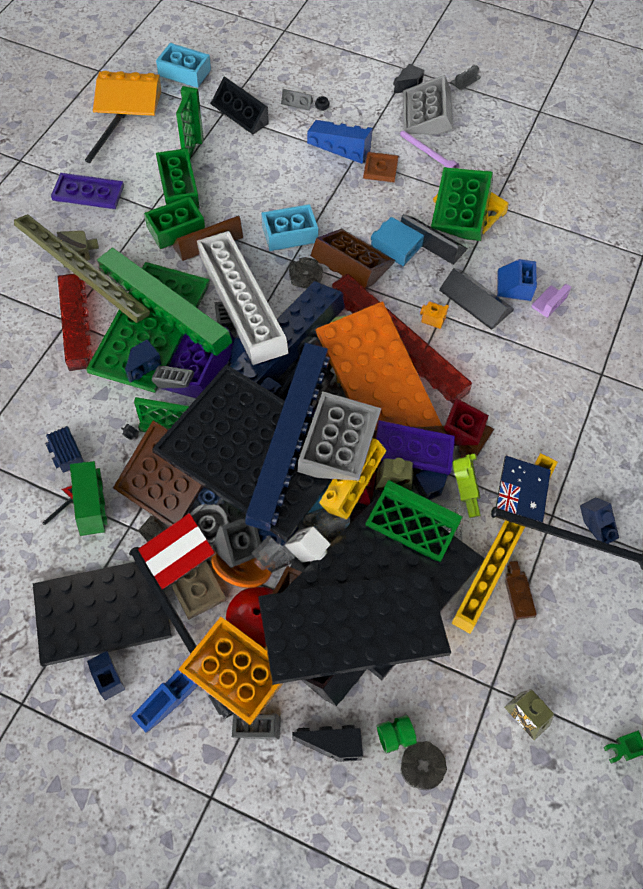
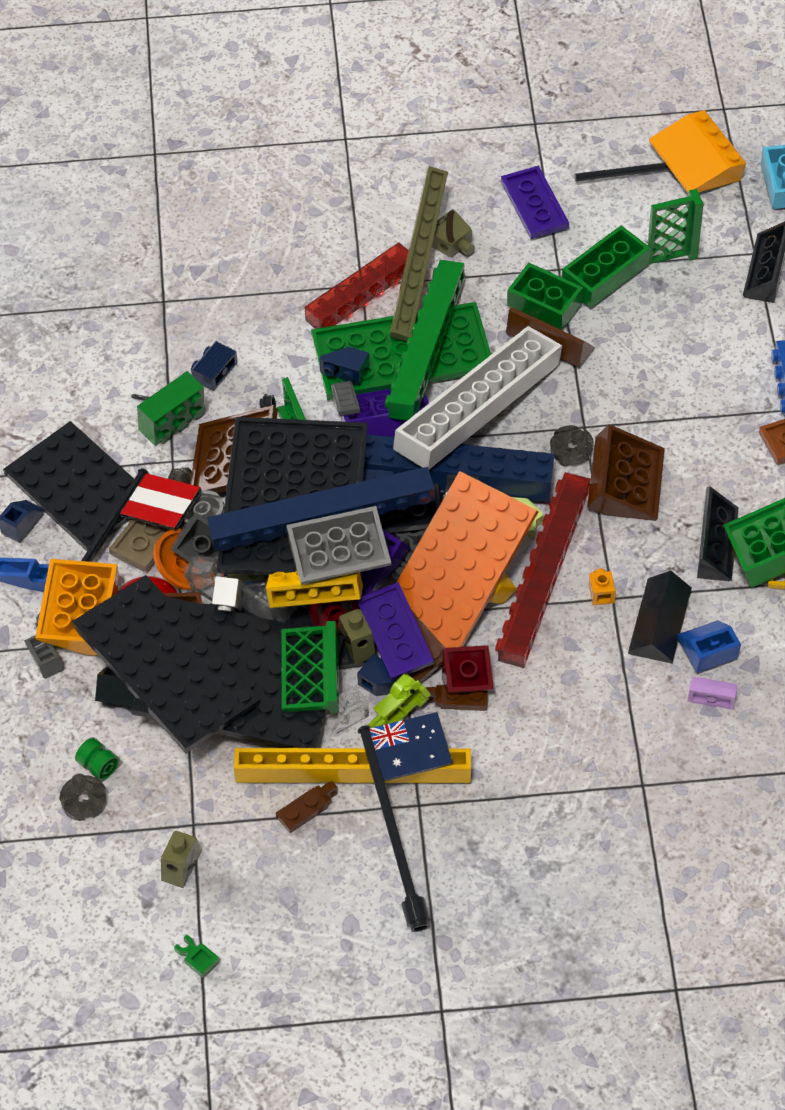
camera: 65 degrees right, 5 degrees down
(289, 227) = (618, 397): medium azure brick -> none
(337, 744) = (62, 720): black slope -> none
(397, 240) = (681, 506): dark azure brick -> none
(600, 519) = (434, 845): dark blue slope -> none

